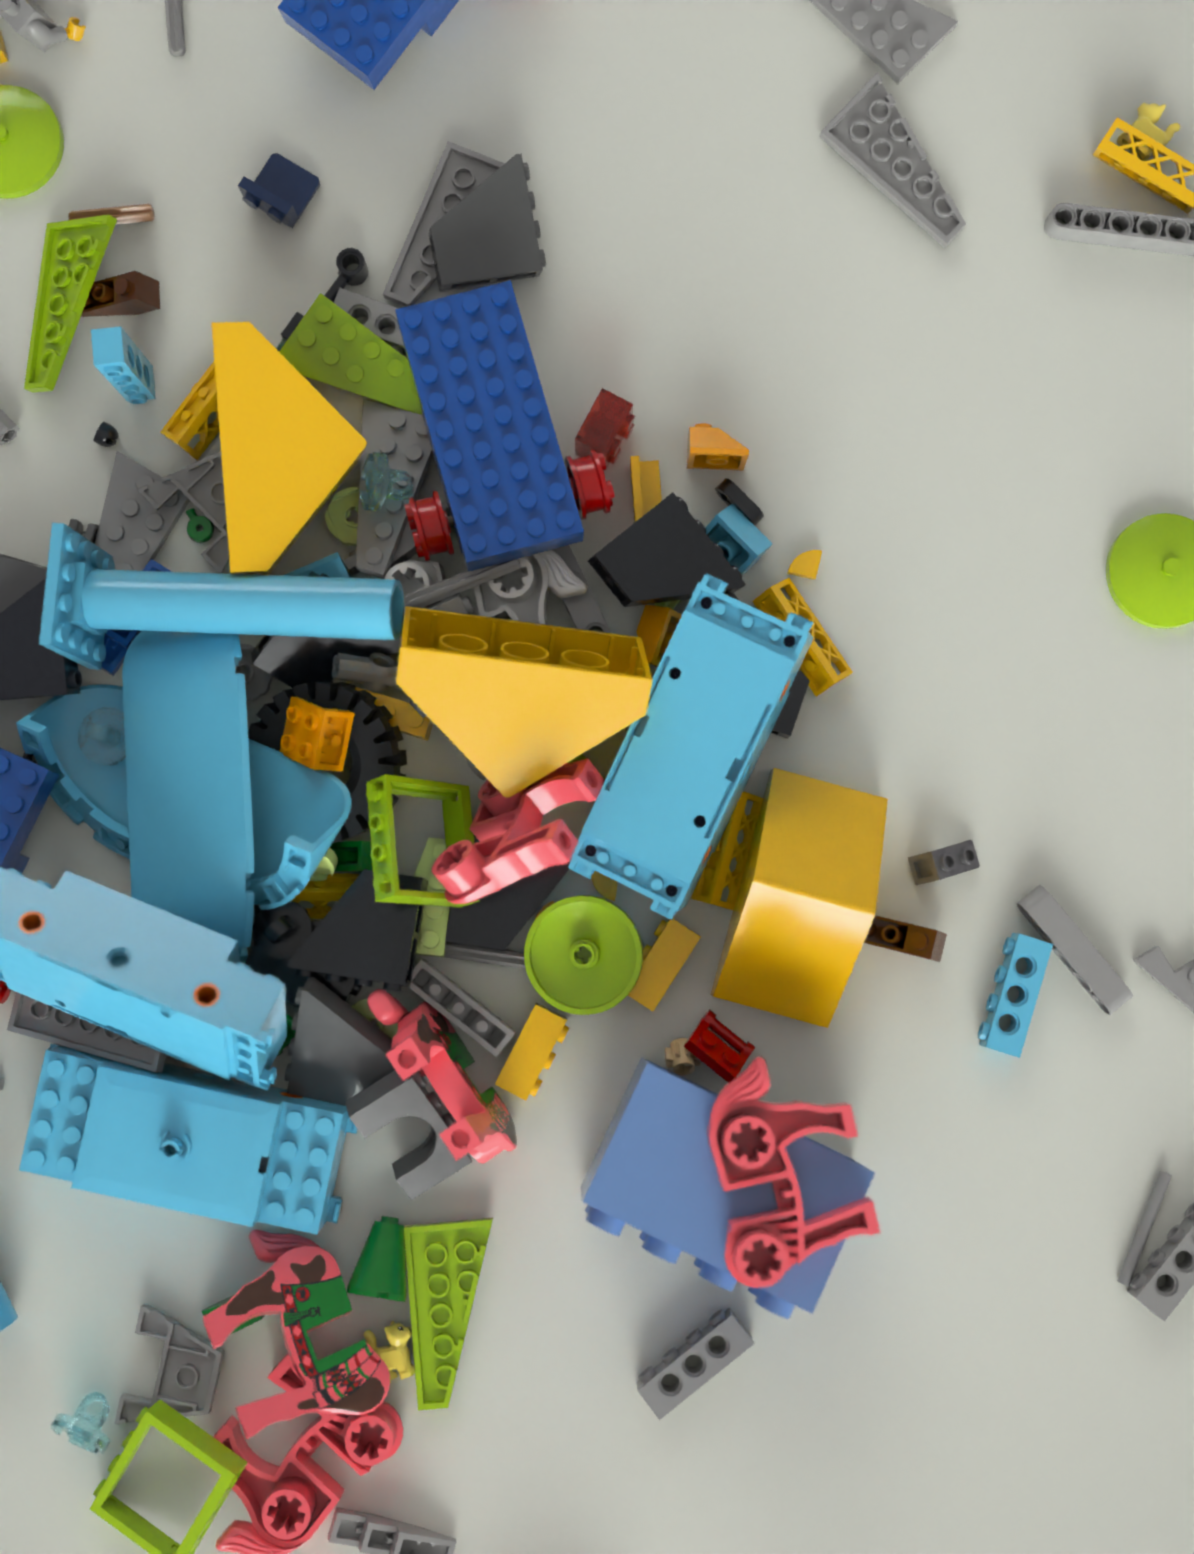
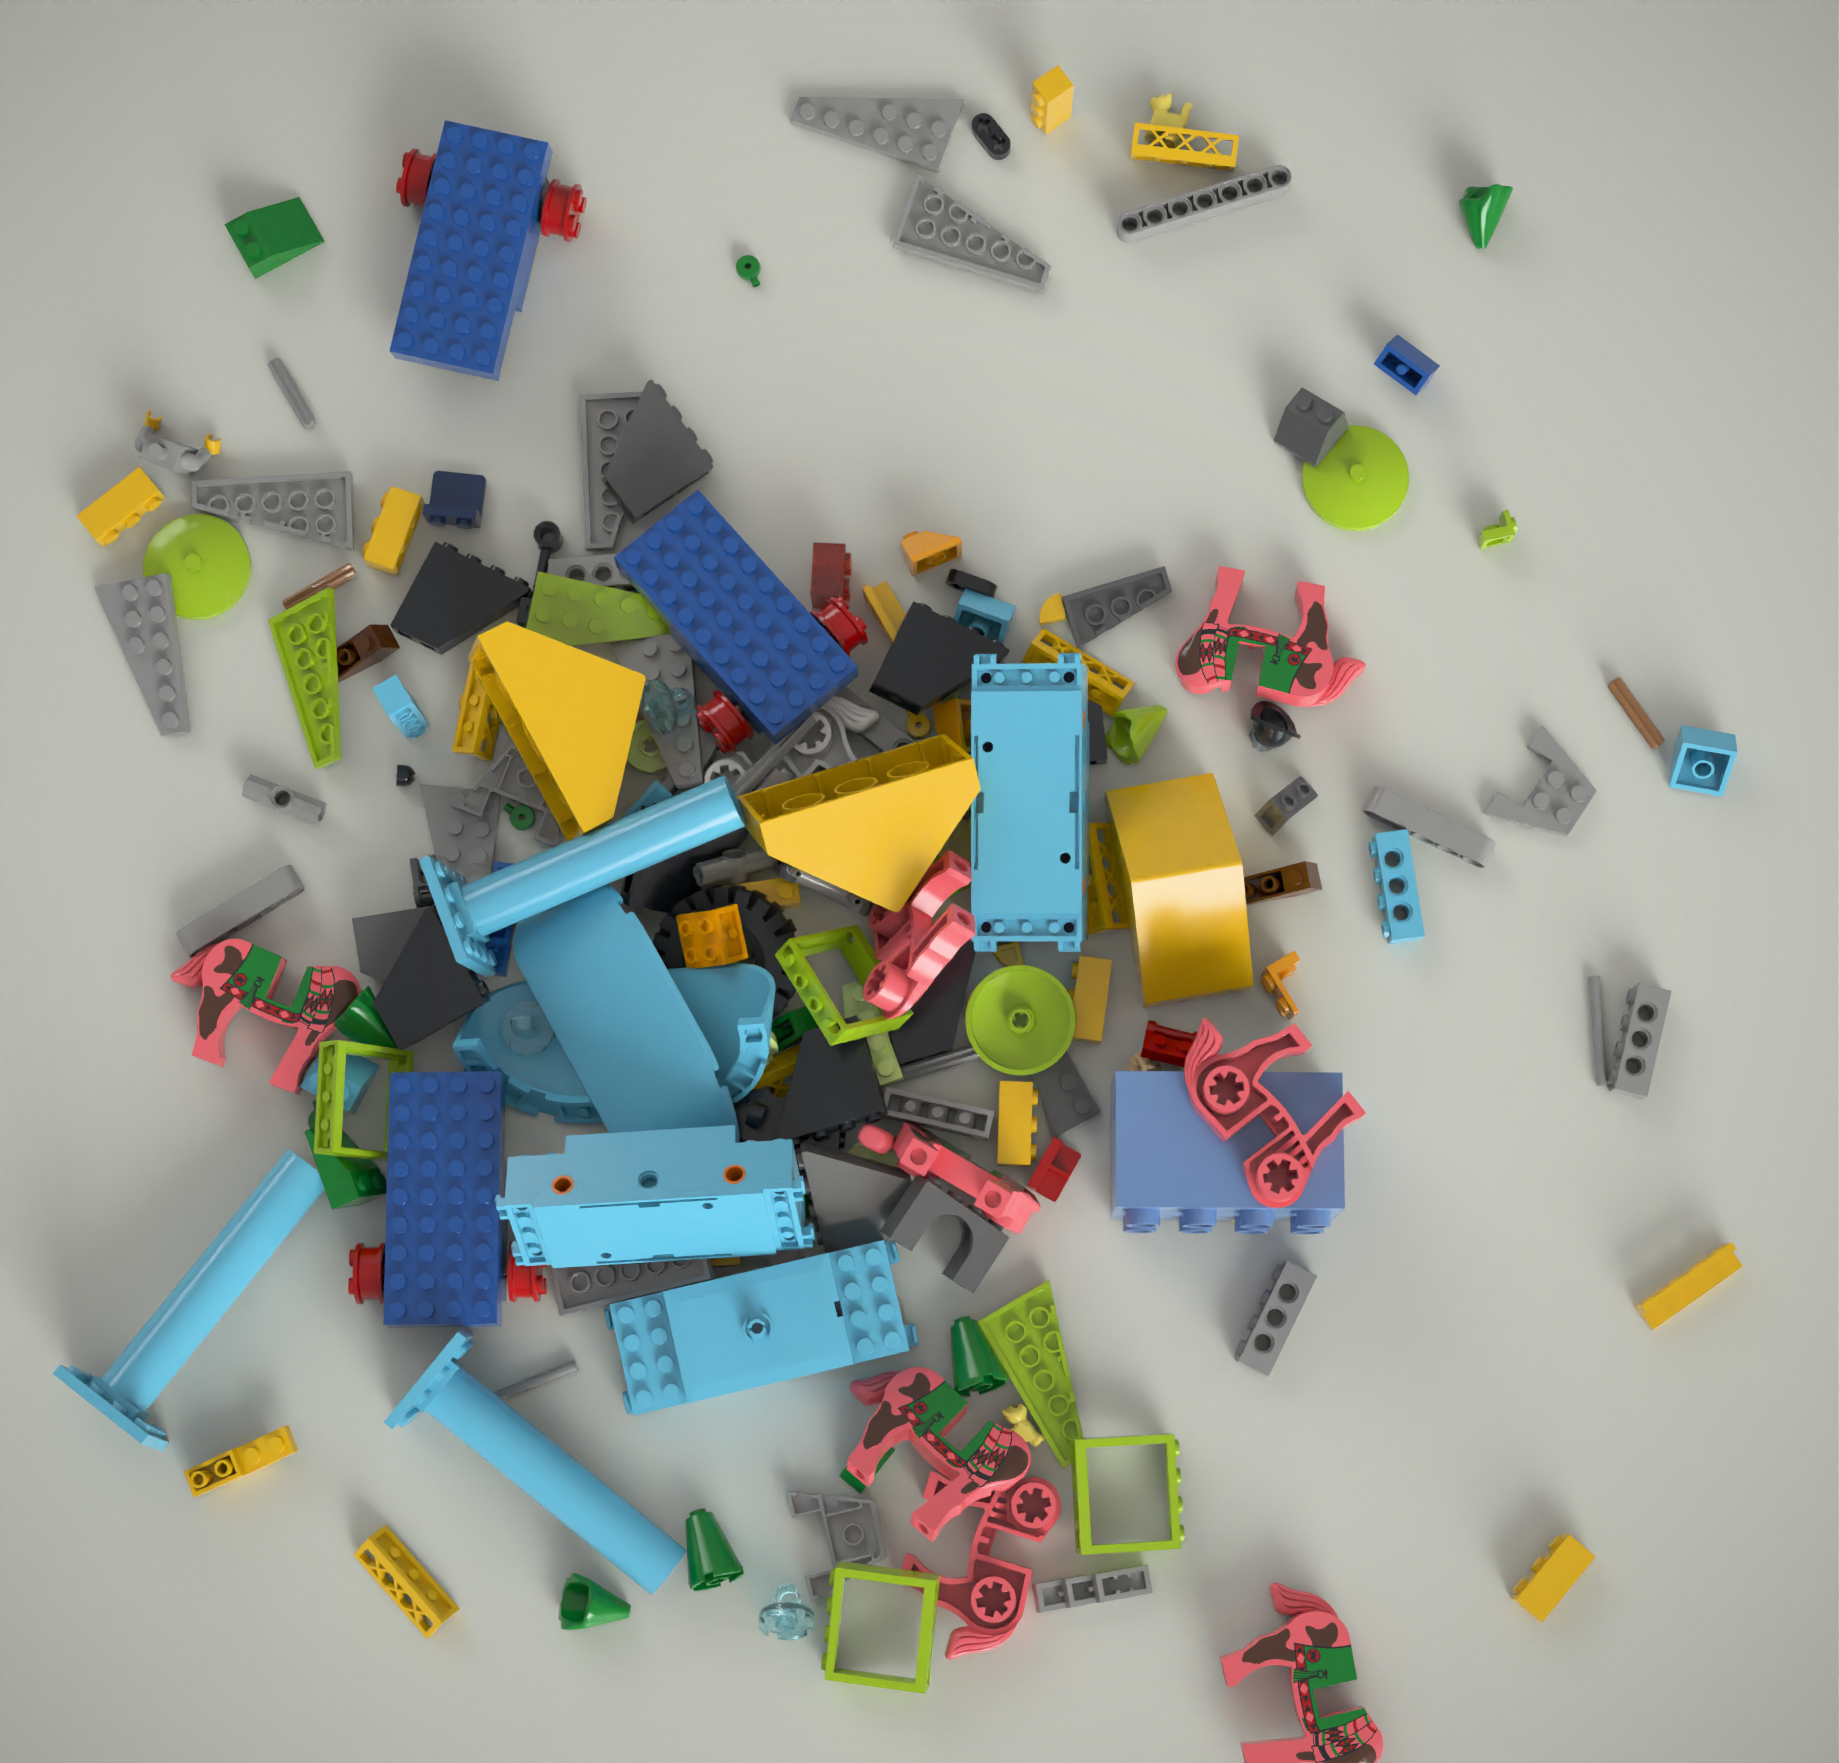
camera: 20 degrees left, 5 degrees down
(38, 1330) = (709, 1553): none -> green cone
(128, 124) = (298, 504): none -> light grey wing
(206, 192) = (393, 530): none -> yellow brick
(233, 283) = (455, 599): none -> black slope
(483, 1412) = (1081, 1493): none -> lime window
(548, 1113) = (1054, 1170): none -> red panel
(592, 1048) = (1064, 1096): none -> dark grey wing
(619, 610) = (913, 720): none -> yellow piece
(670, 99) = (749, 274): none -> green piece
(829, 721) = (1134, 732): none -> lime hat
(847, 1031) = (1272, 983): none -> light orange bracket
(864, 584) = (1107, 605): none -> dark grey wing
(966, 778) = (1271, 726): none -> black helmet
(972, 68) = (986, 140): none -> black beam
(1013, 733) = (1292, 669): none -> animal
(1045, 55) = (1051, 100): none -> yellow brick
(1115, 1521) = (1689, 1286): none -> yellow fence
(1146, 500) = (1310, 427): none -> dark grey slope

